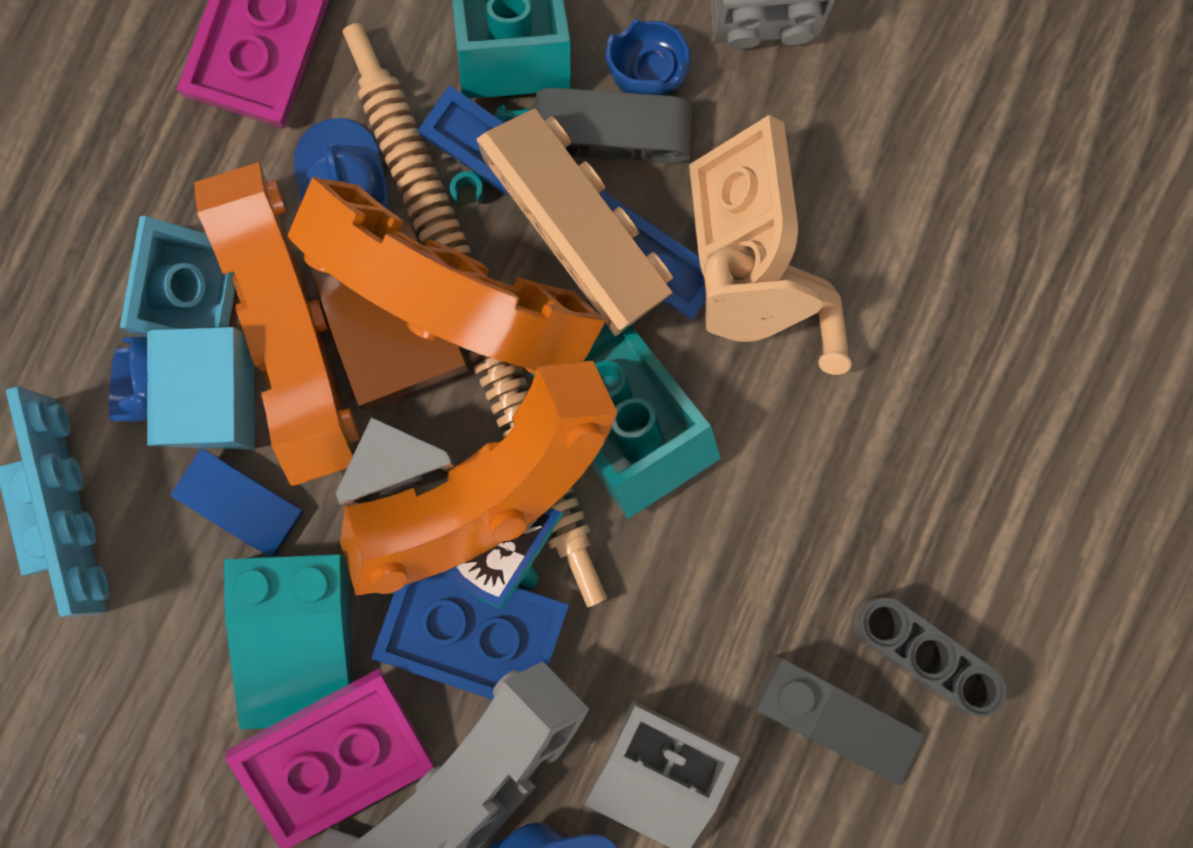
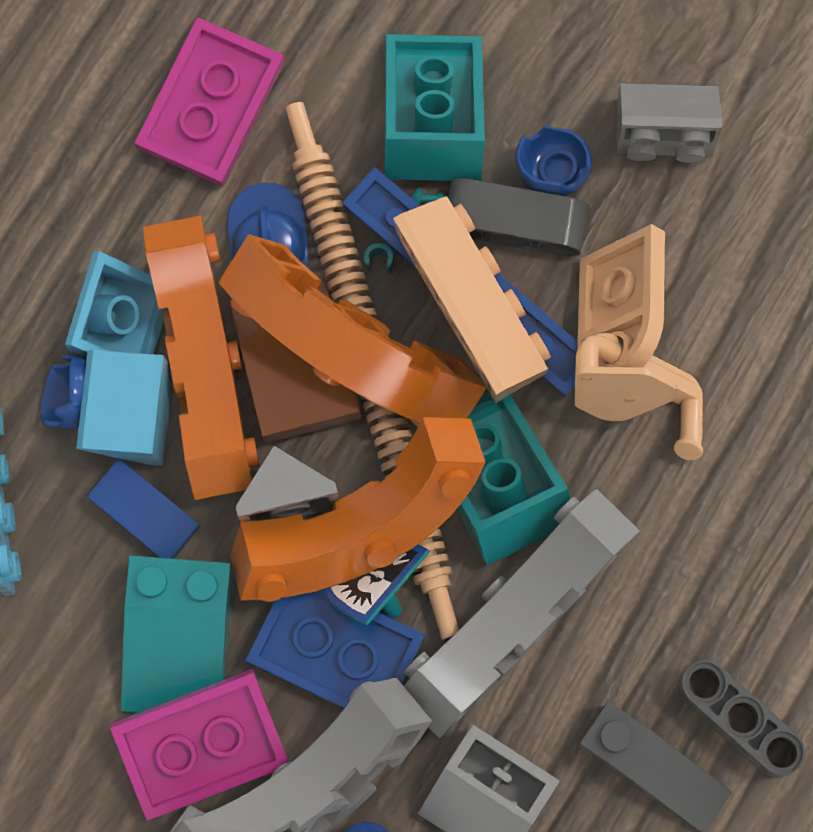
camera: 20 degrees right, 5 degrees down
(670, 567) = (519, 610): none -> light grey brick

